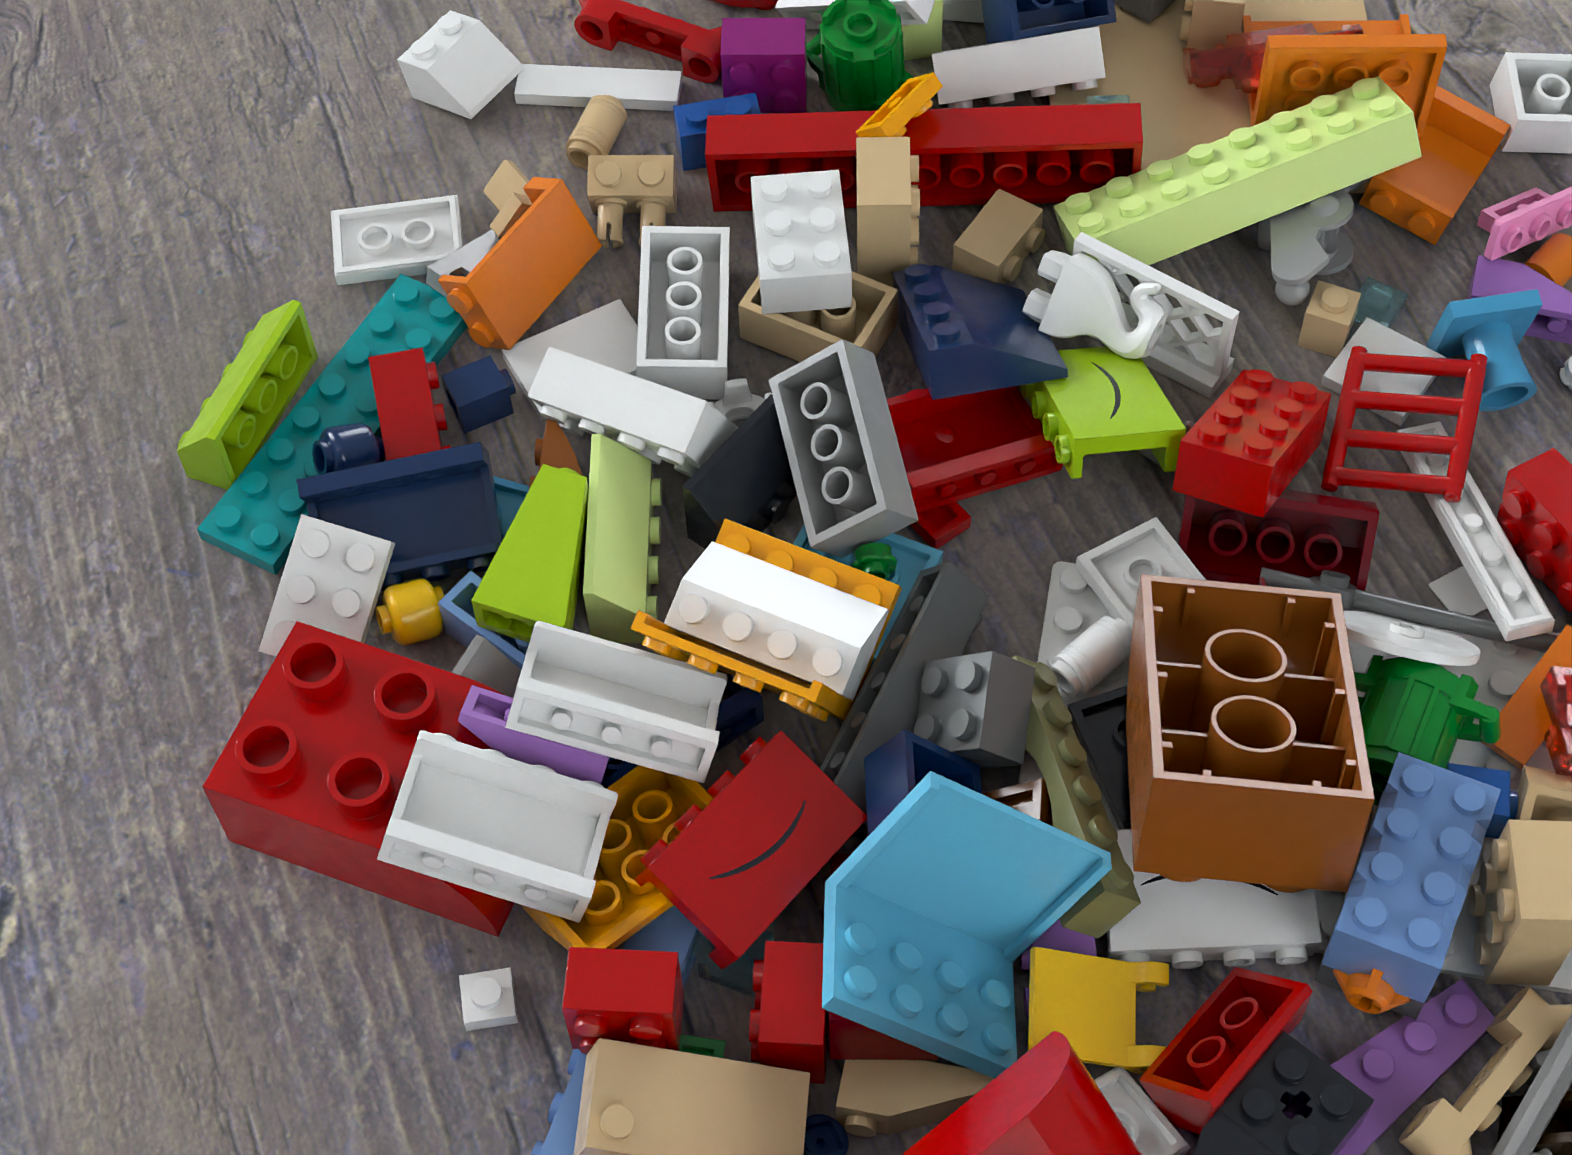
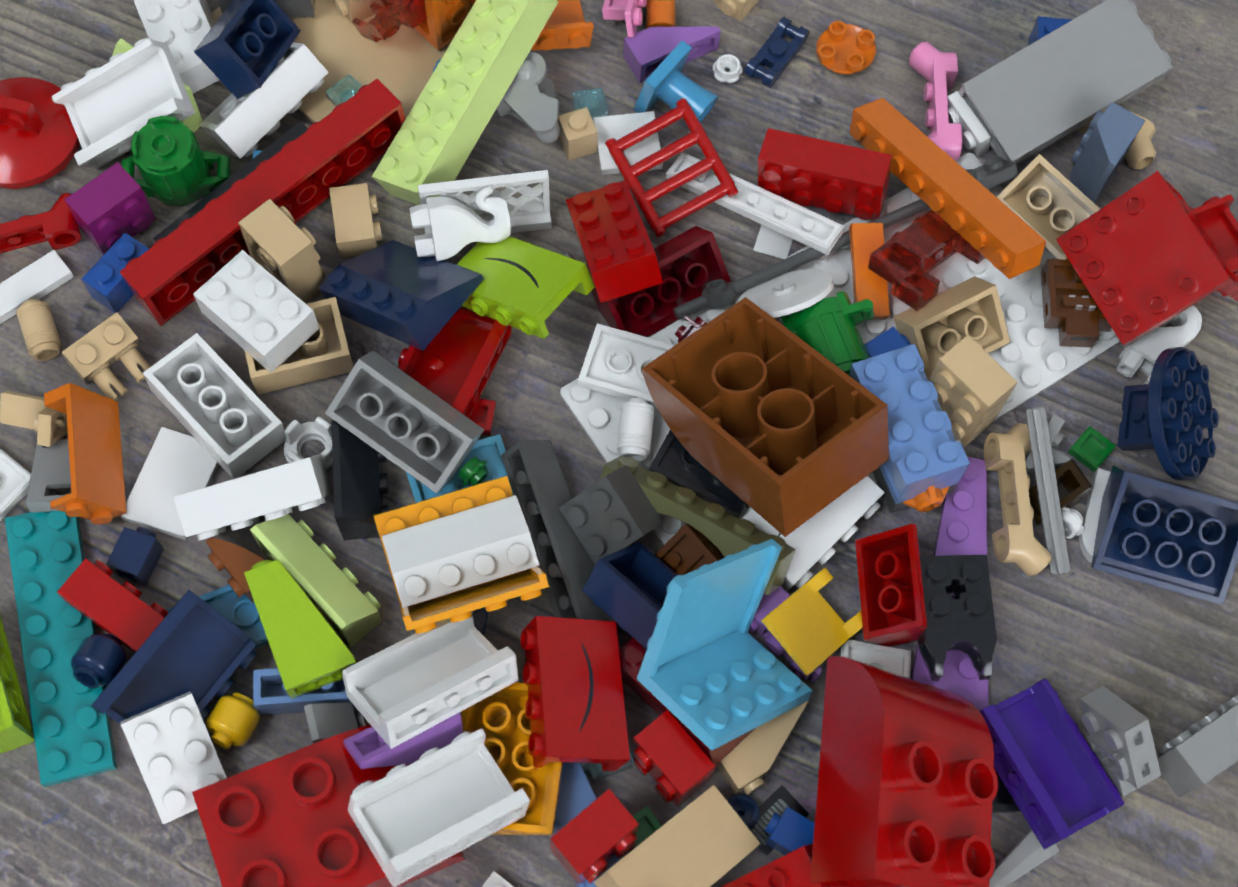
camera: 50 degrees left, 10 degrees up
(906, 103) = (242, 183): light orange plate -> none

